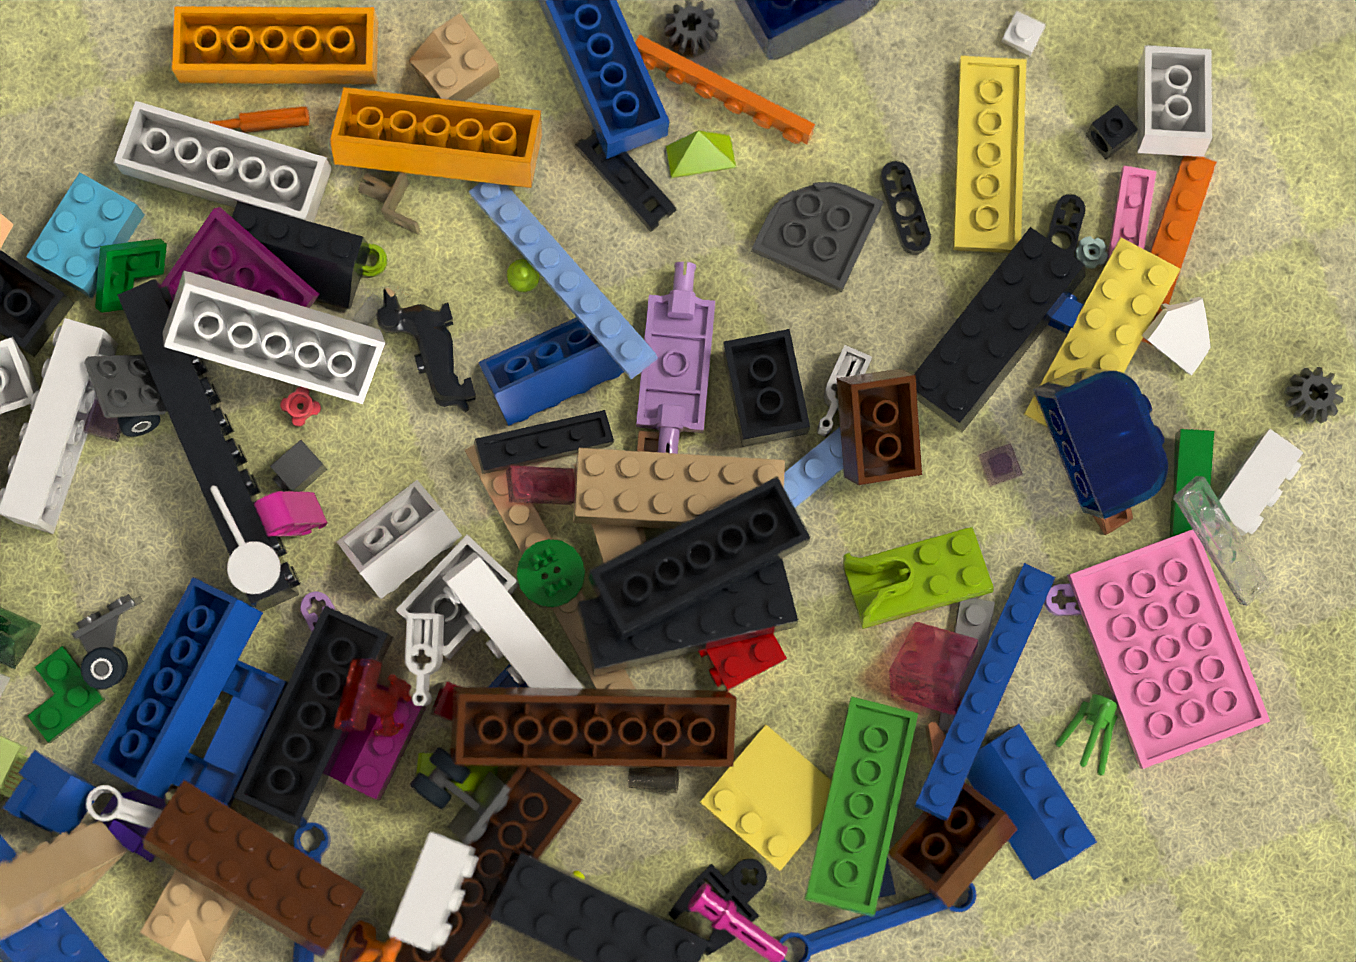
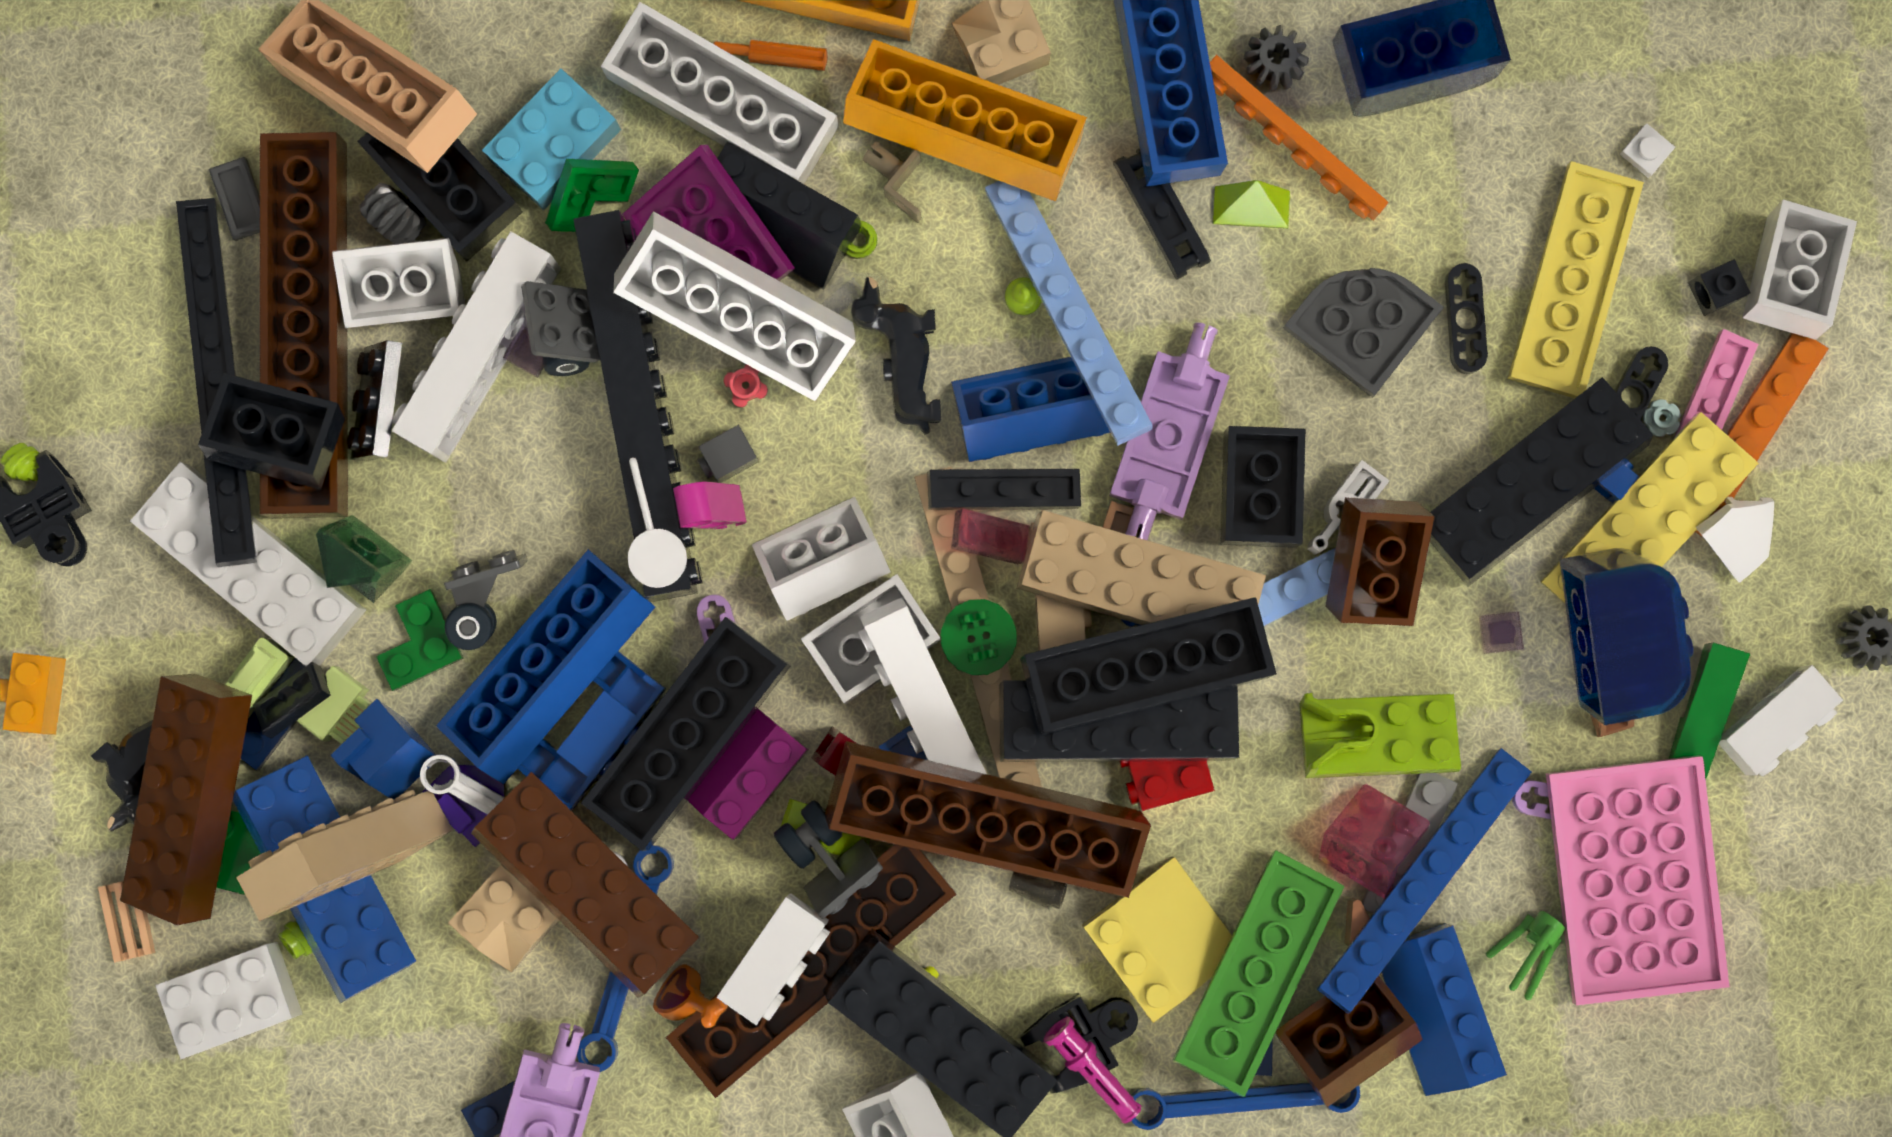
camera: 15 degrees right, 5 degrees up
(364, 698) = (745, 730): clear red piece -> none
(422, 634) = (815, 684): white piece -> none
(1221, 540) = (1727, 777): clear plate -> none

